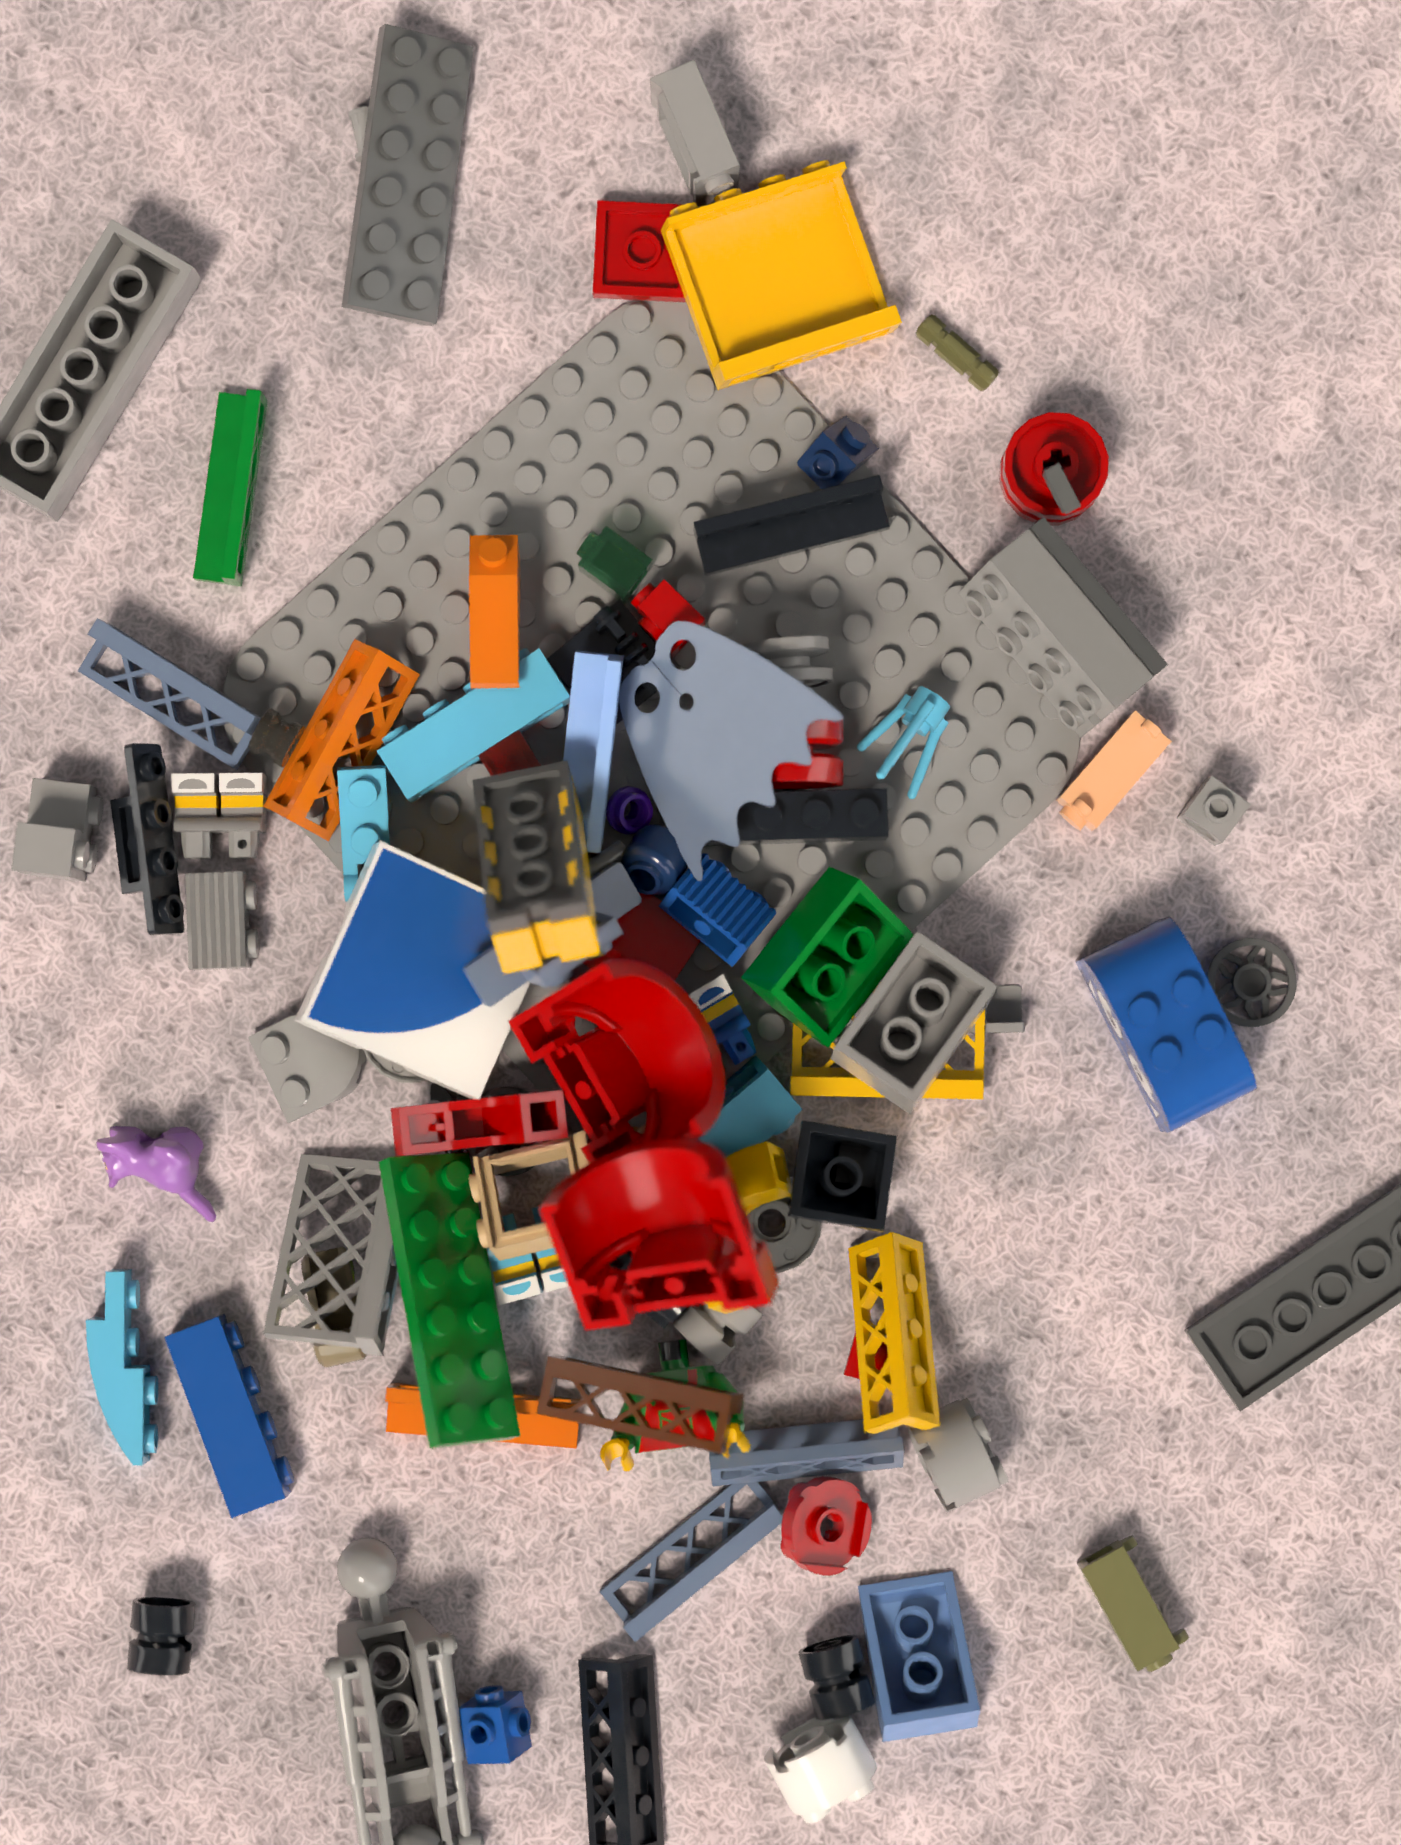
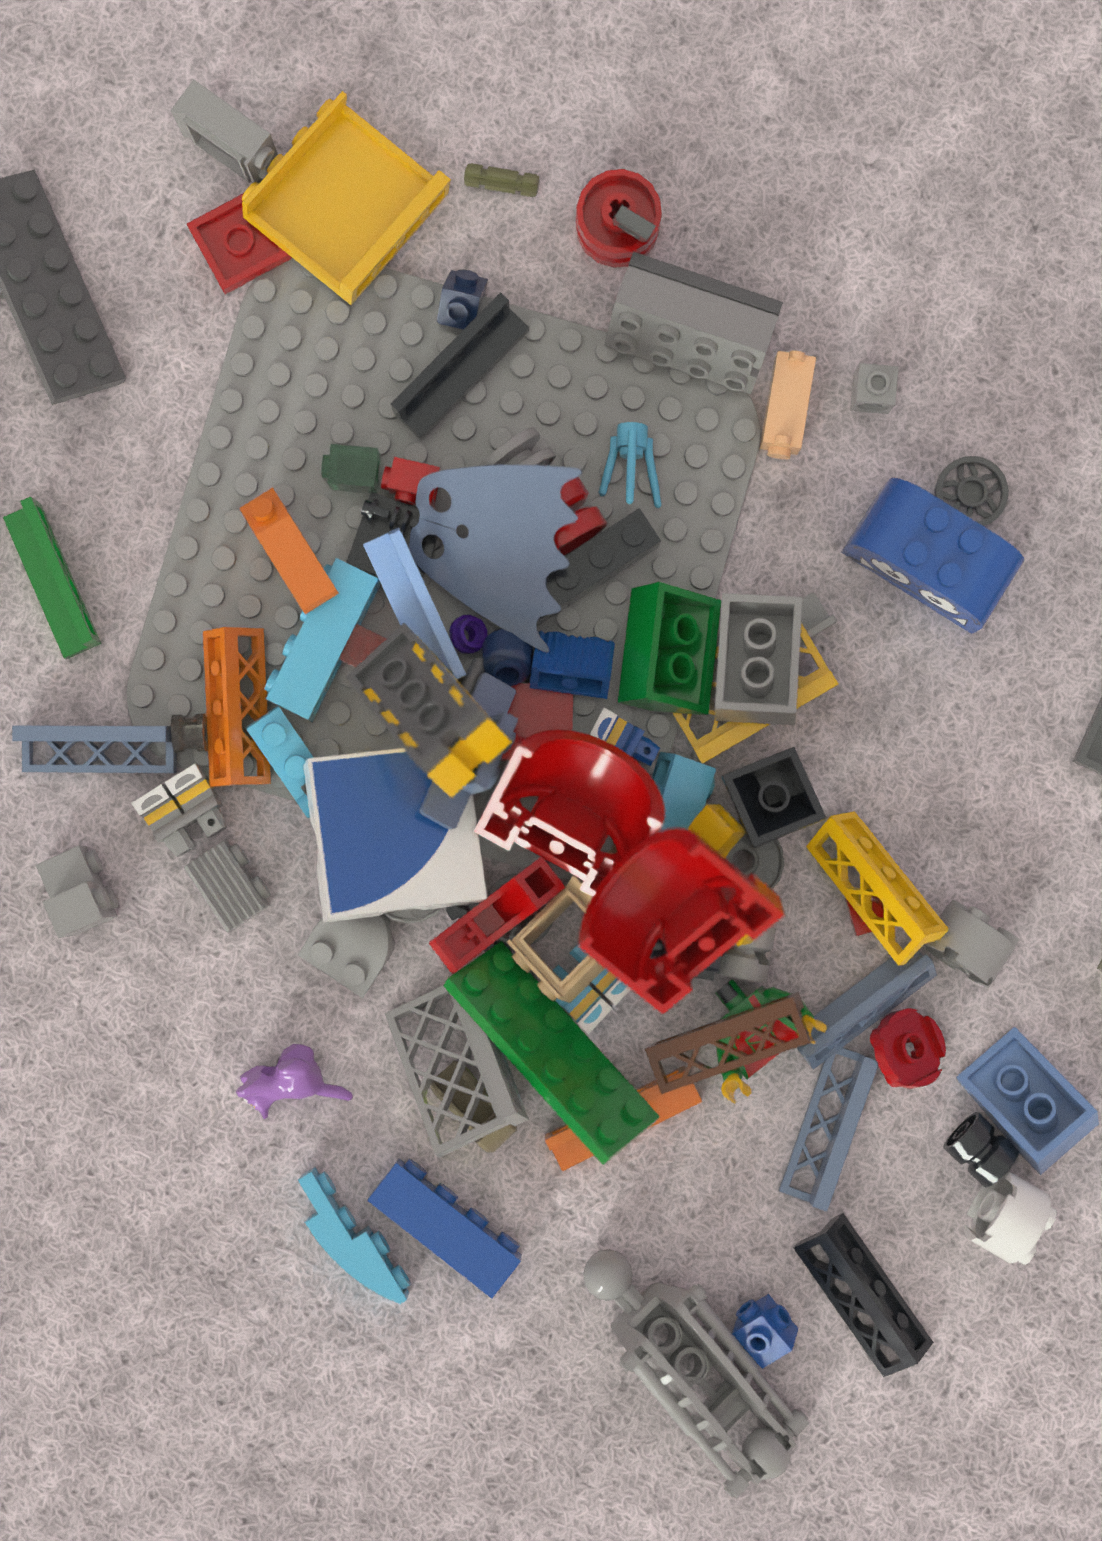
camera: 30 degrees left, 0 degrees up
(146, 840) = (142, 860): black bracket -> none
(161, 1636) = (494, 1414): black wheel -> none

